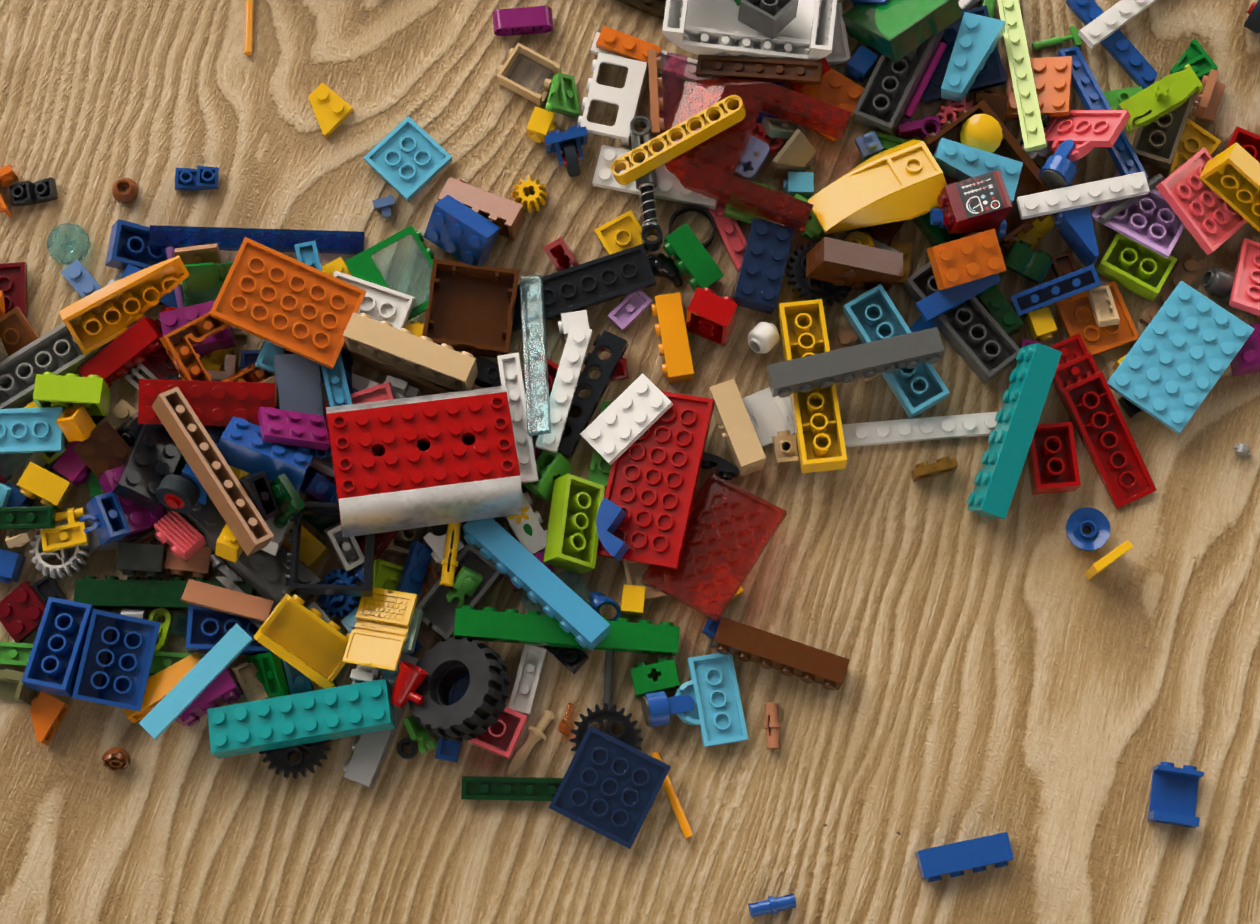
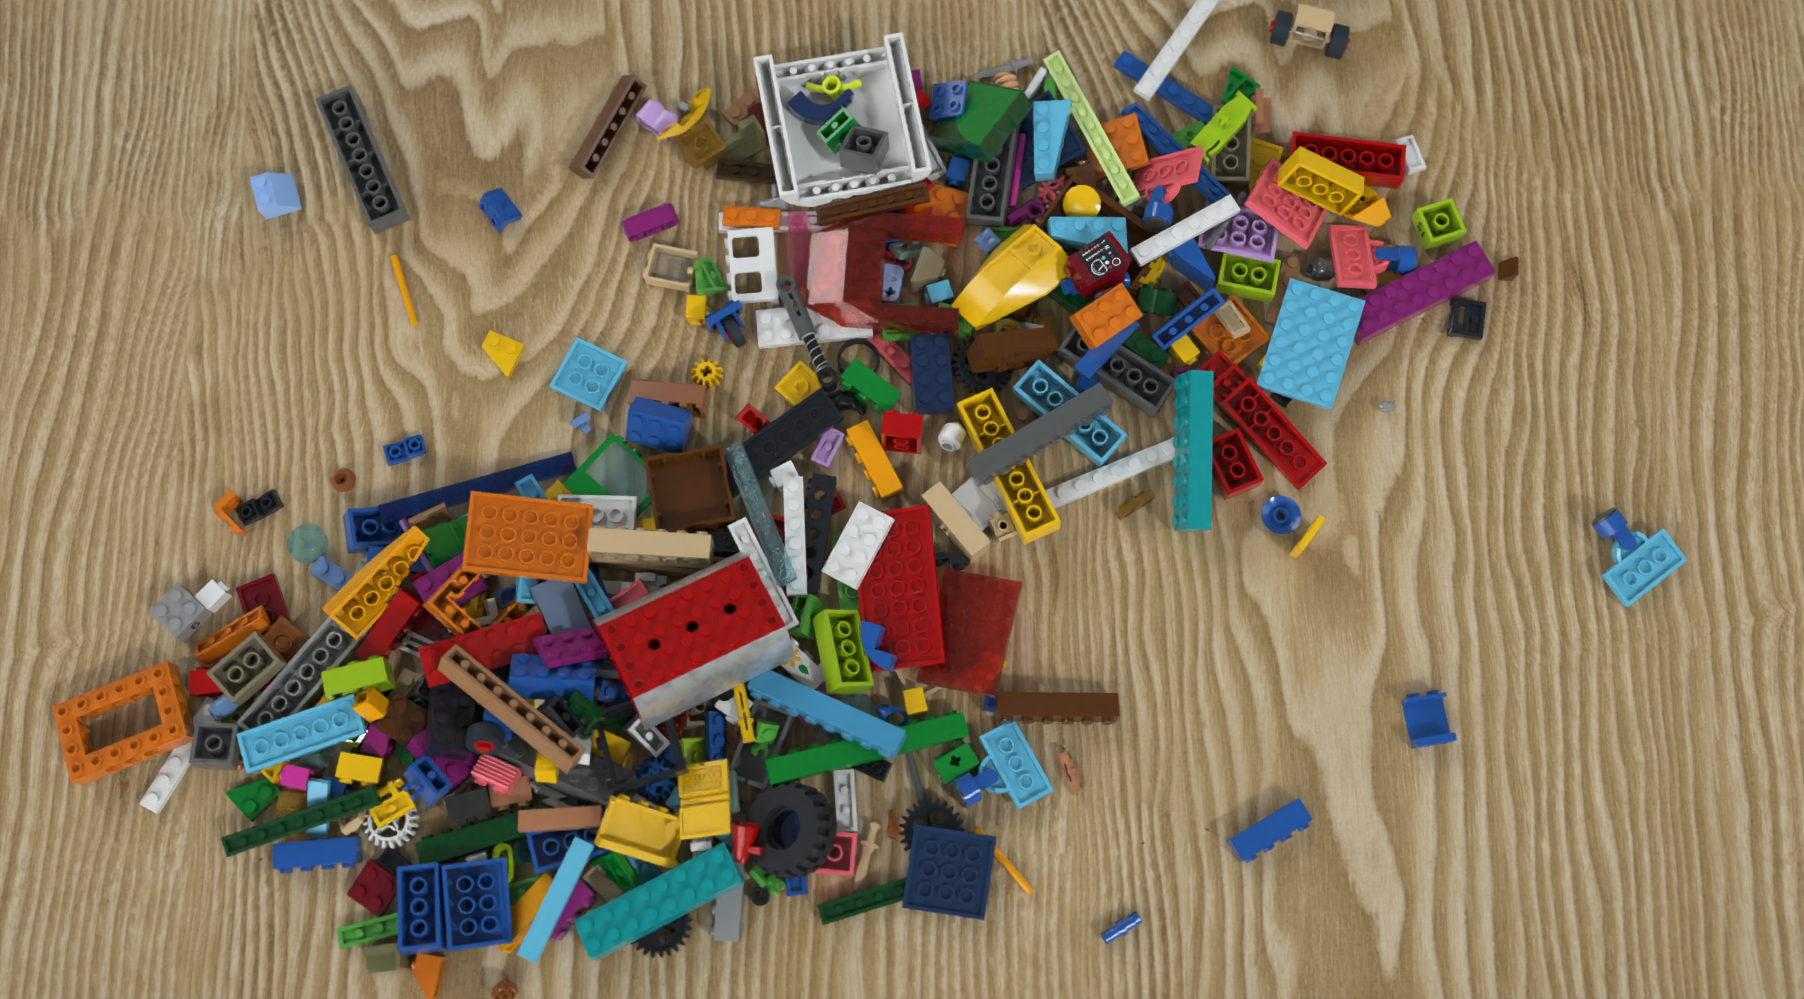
camera: 20 degrees left, 0 degrees up
(655, 84) = (792, 259): nougat plate -> none
(658, 38) = (774, 202): none -> light grey piece
(682, 131) = (820, 296): yellow beam -> none
(1058, 40) = (1115, 103): bright green piece -> none

